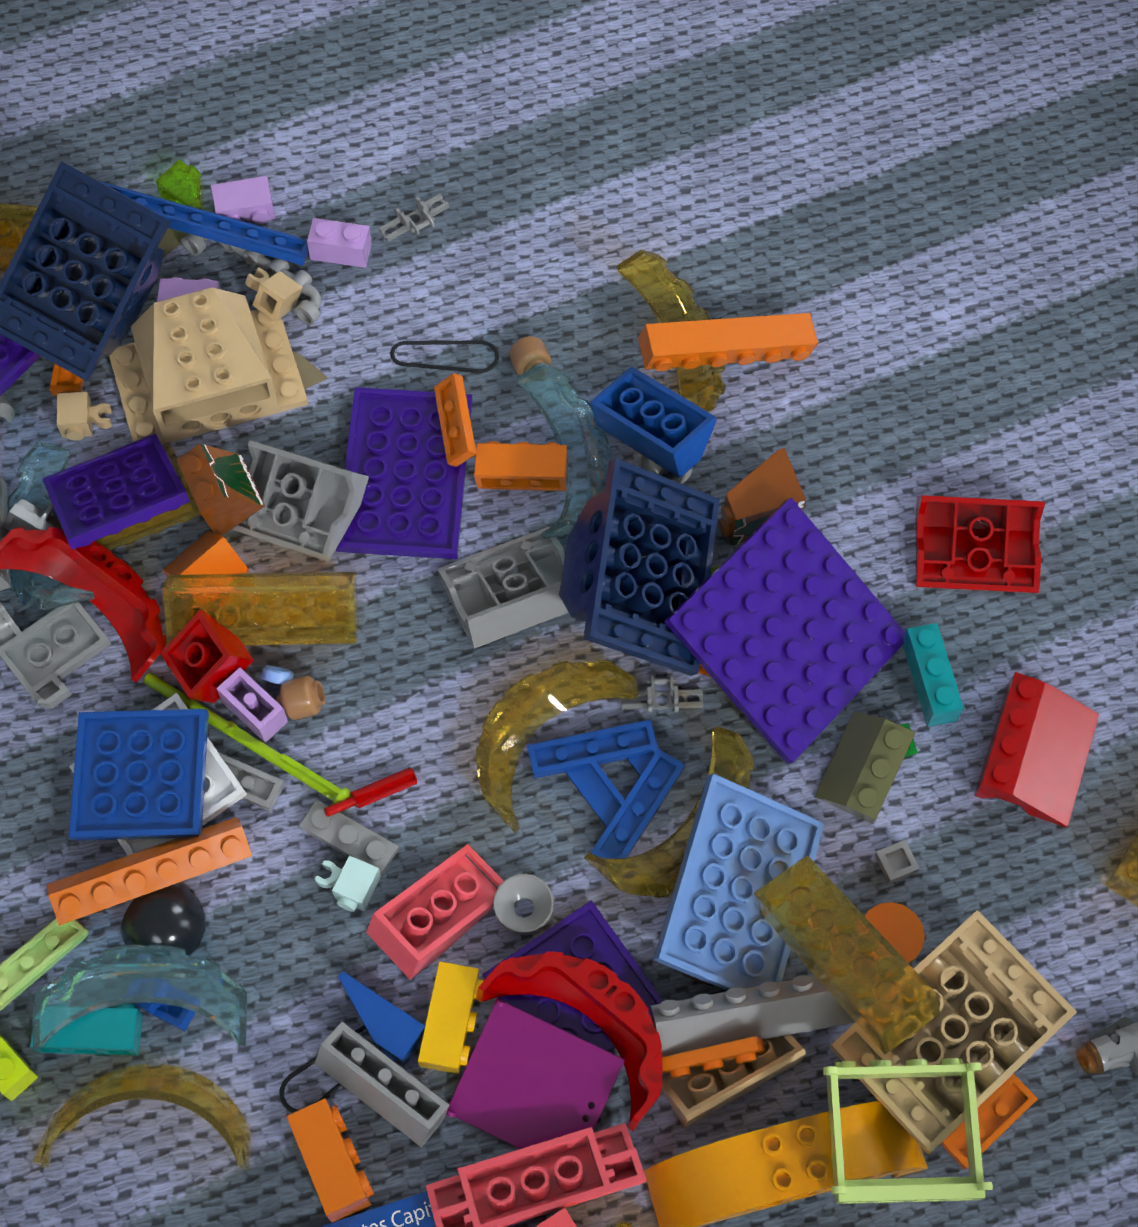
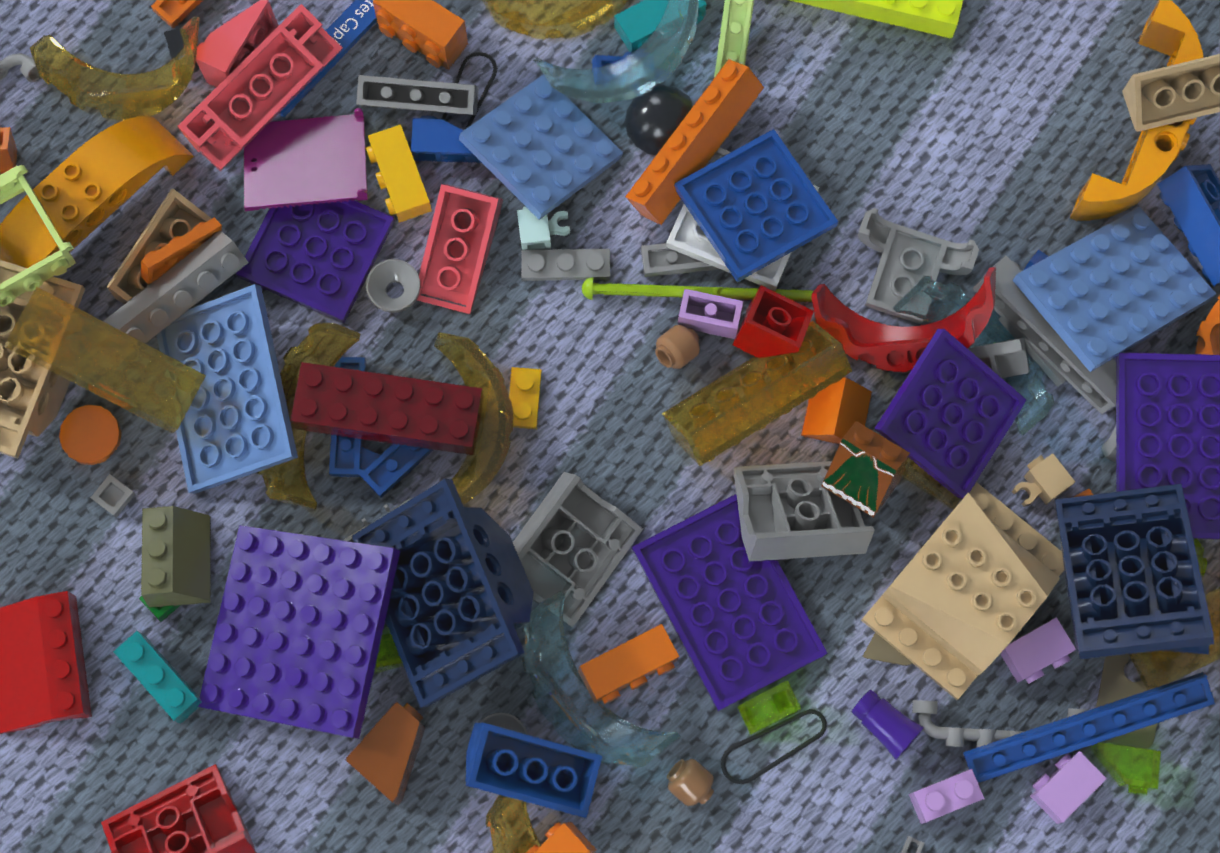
camera: 150 degrees right, 10 degrees up
(275, 294) = (963, 701): tan brick -> none
(276, 674) = (710, 354): light blue tile -> none
(297, 958) = (540, 146): none -> medium blue plate
(345, 312) = (886, 723): none -> dark purple plant
(375, 791) = (566, 308): red axle -> none
(424, 369) = (769, 707): none -> clear neon green slope
(455, 420) = (712, 666): orange plate -> none
(463, 739) = (525, 396): none -> yellow plate
(599, 781) = (387, 408): none -> dark red brick
(600, 997) = (273, 241): red windscreen -> none

